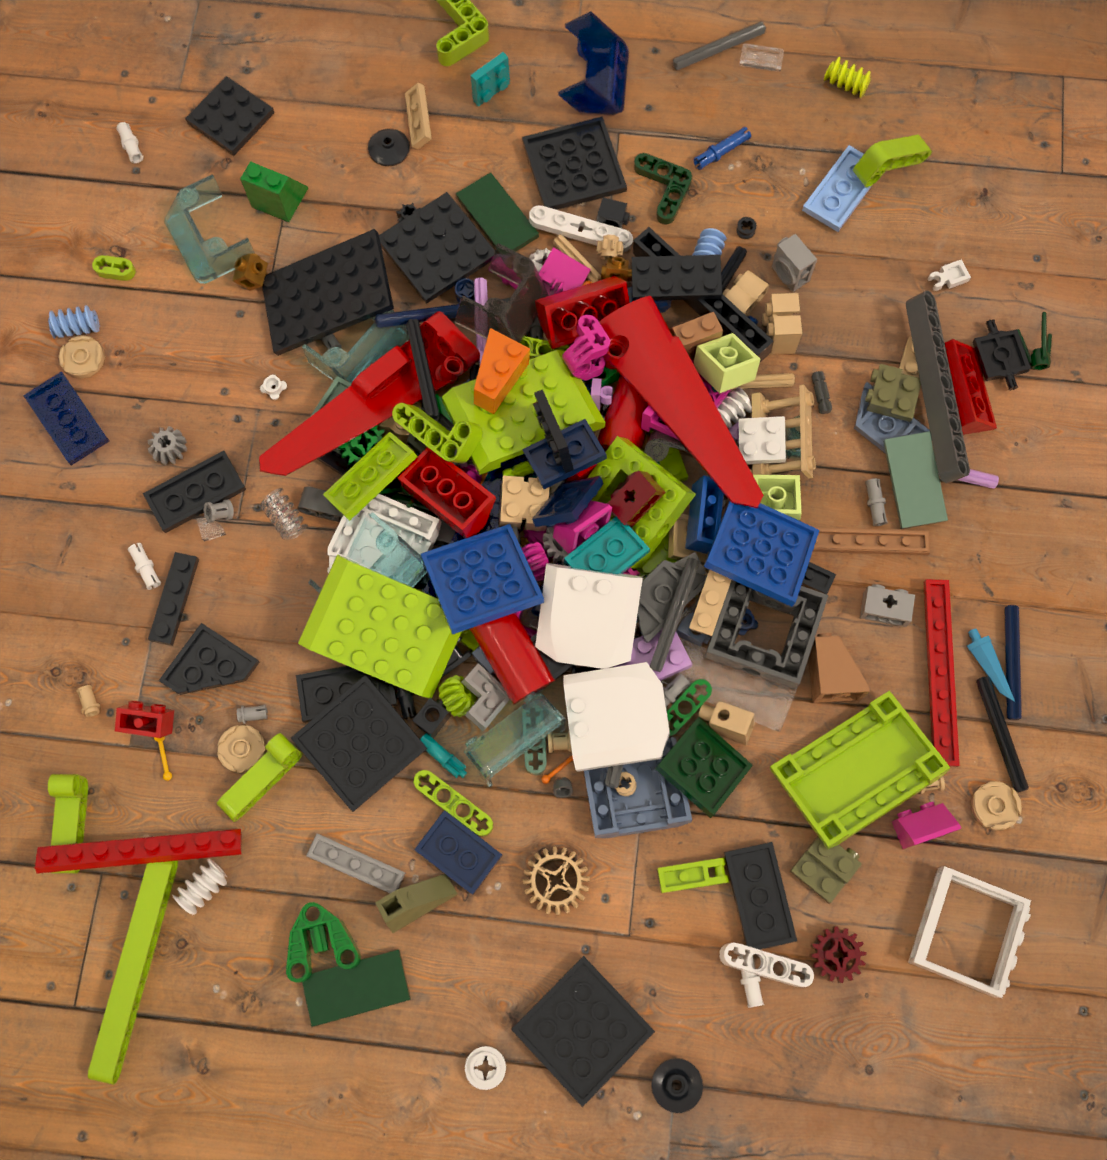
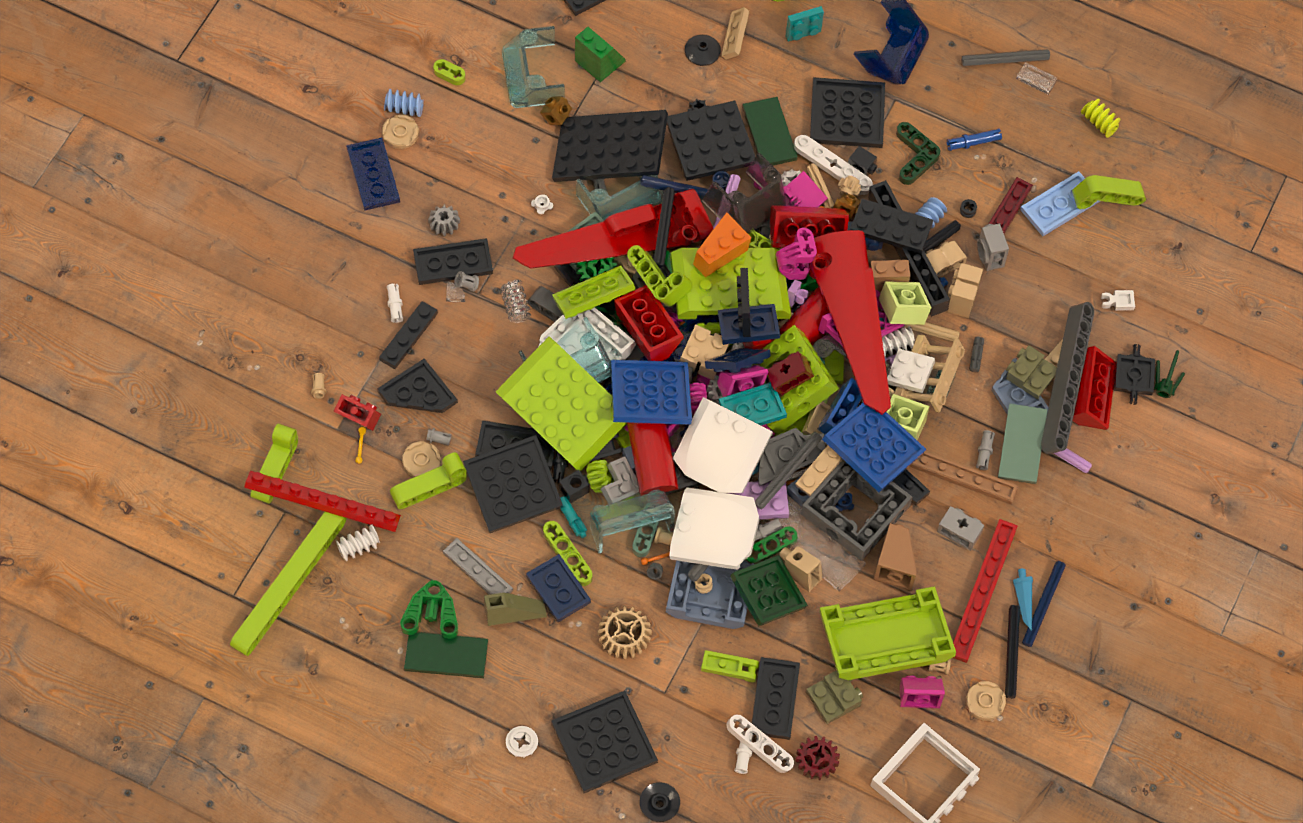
camera: 15 degrees right, 10 degrees down
(789, 208) = (1011, 203): none -> dark red tile

